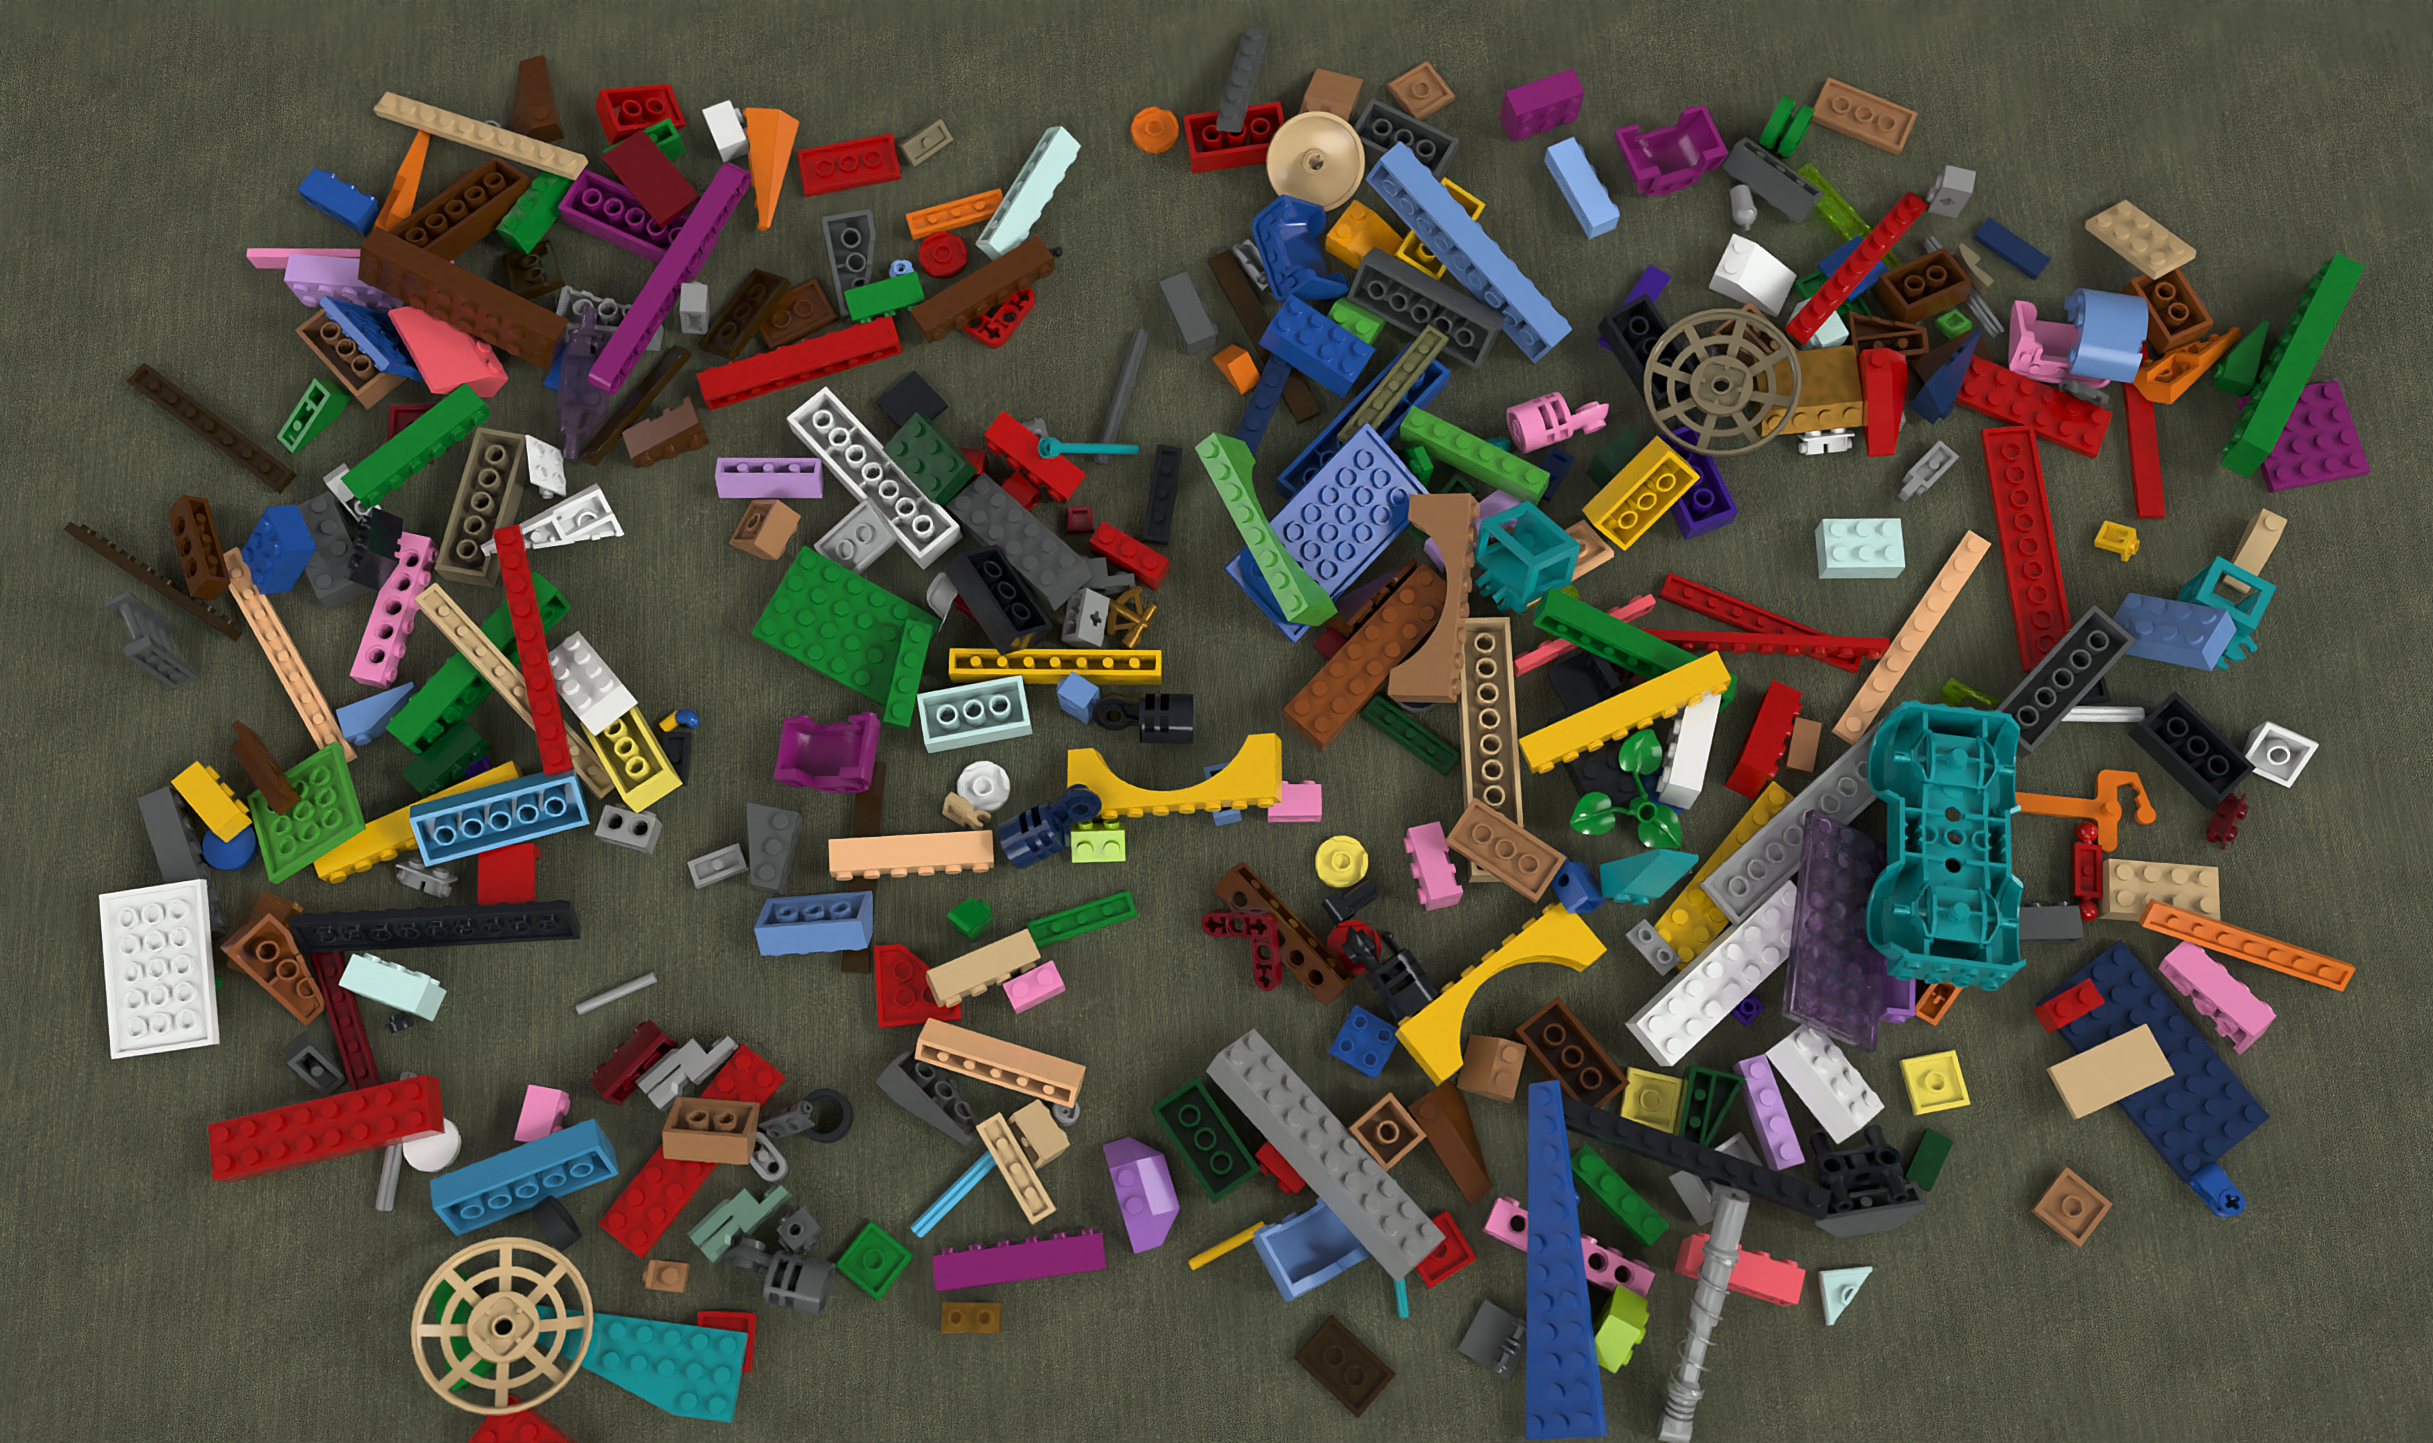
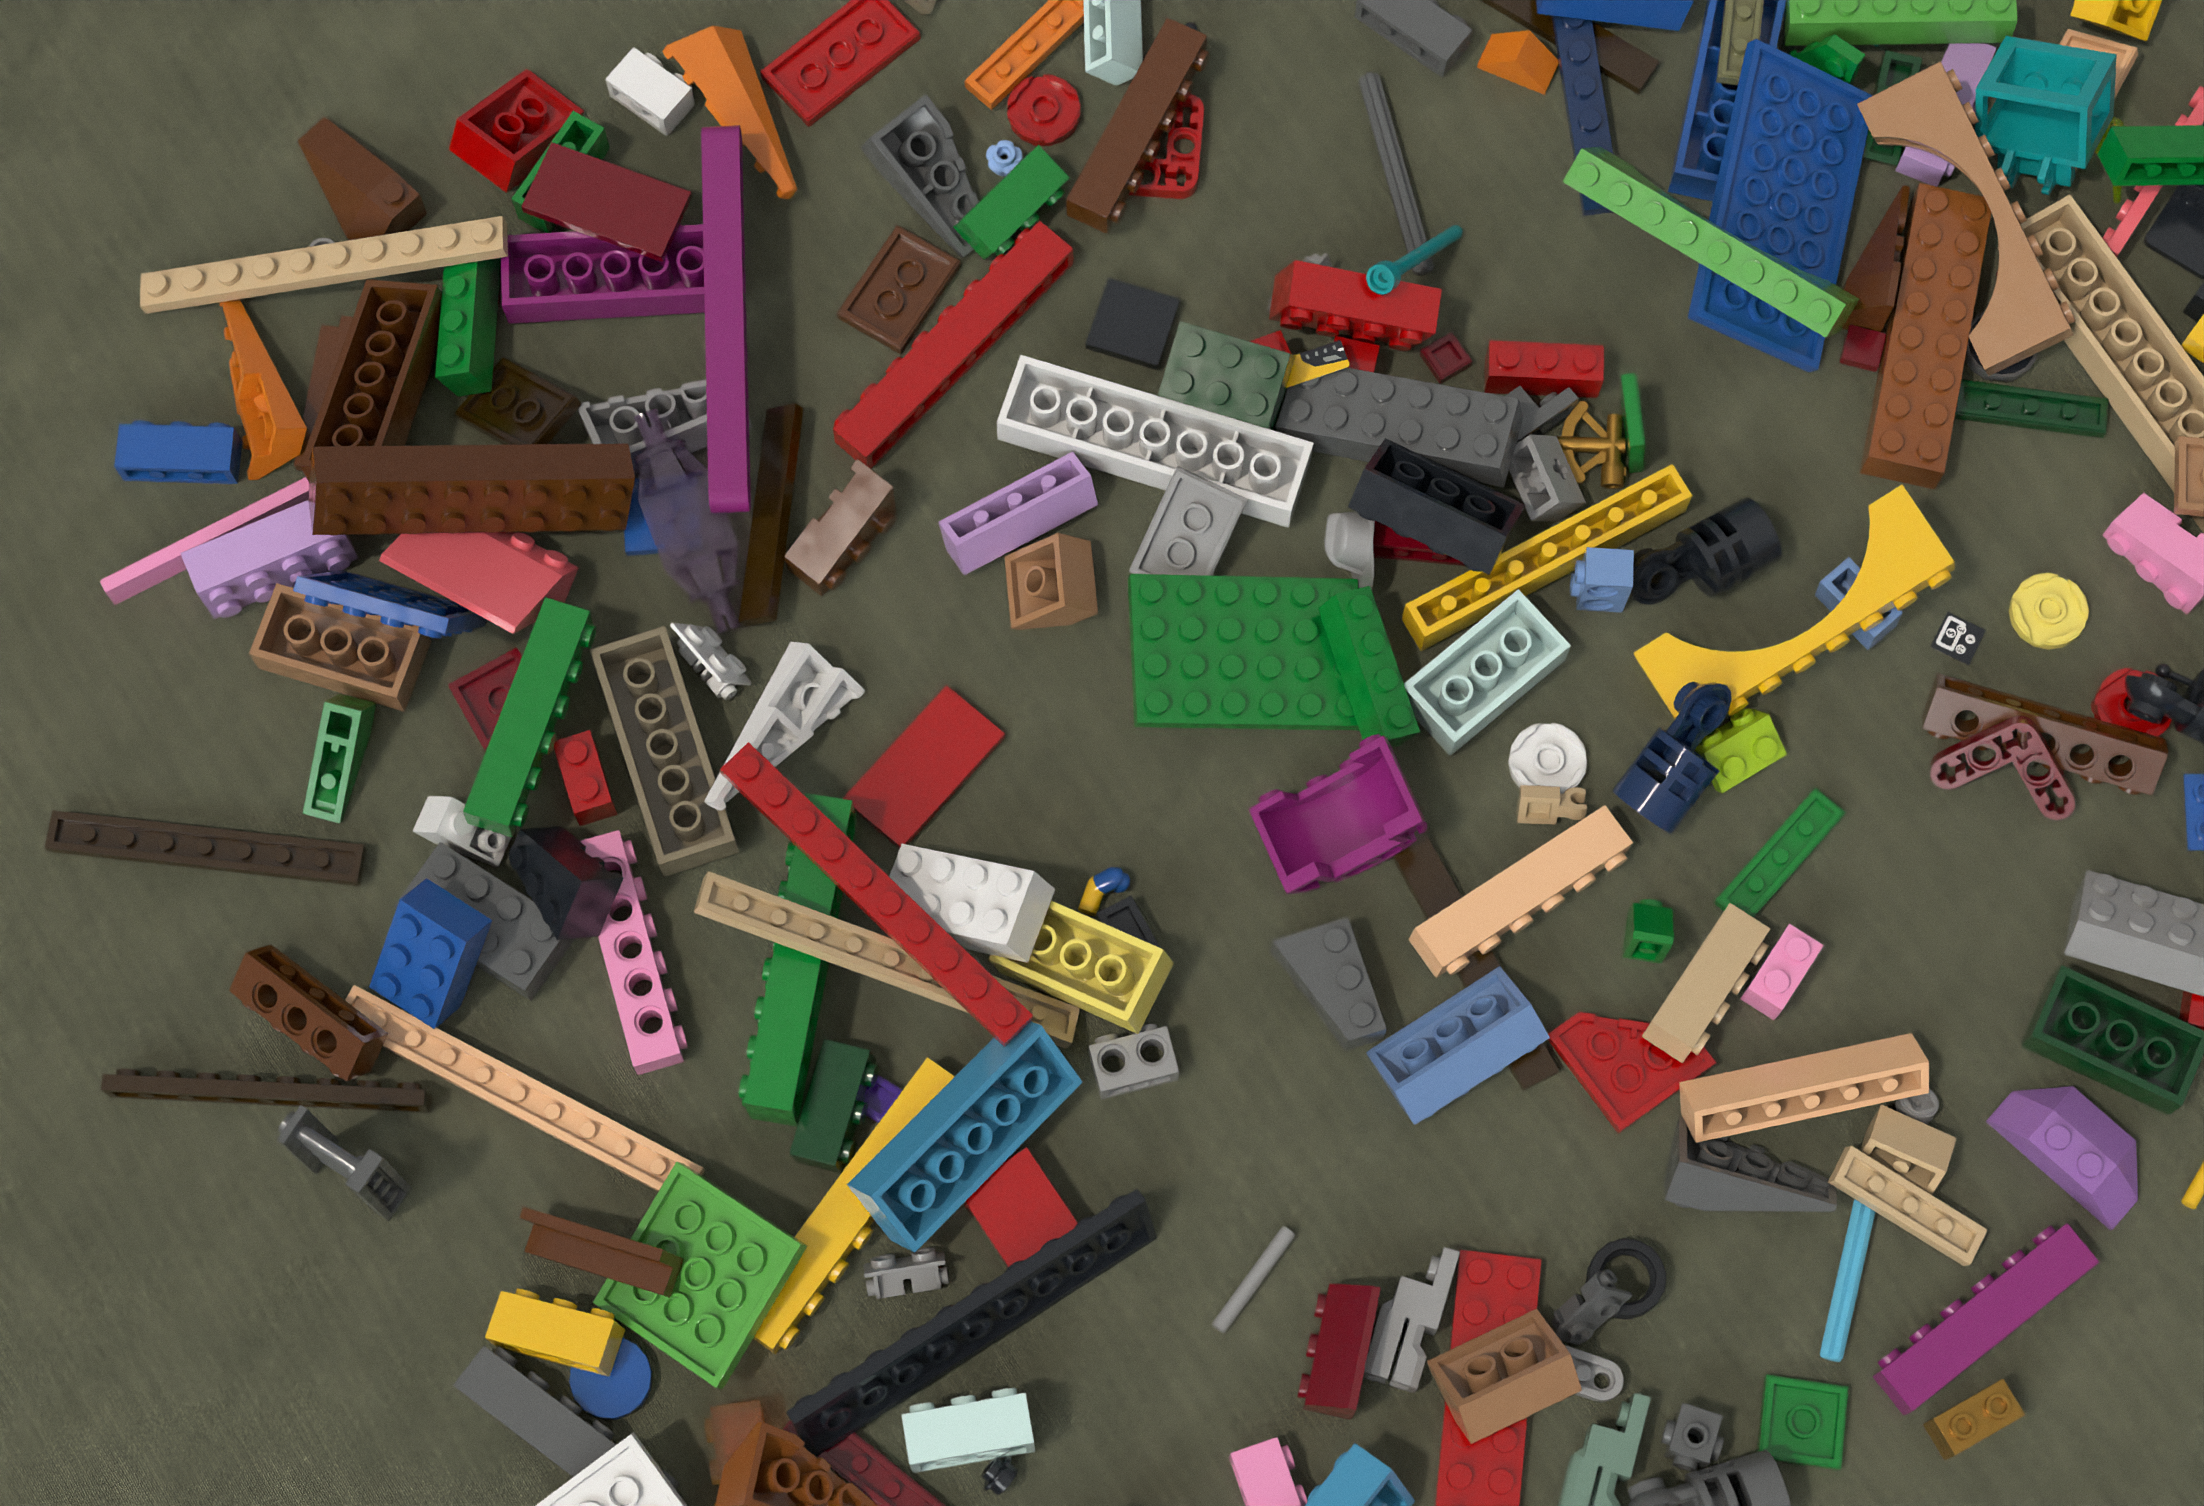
camera: 30 degrees left, 0 degrees up
(370, 716) = (691, 1107): medium blue slope -> none
(434, 499) = (584, 778): none -> red brick
(626, 596) = (924, 767): none -> red tile
(694, 308) = (774, 344): light grey brick -> none
(718, 865) = (1278, 1045): light grey plate -> none
(744, 314) = (838, 319): dark brown tile -> none
(990, 480) = (1318, 363): none -> sticker
(1156, 614) = (1632, 422): none -> green tile
(1162, 495) = (1532, 271): black plate -> none
(1276, 849) = (1958, 638): none -> black sticker
(1299, 803) = (1972, 565): bright pink brick -> none
(1343, 905) = (2089, 659): black piece -> none

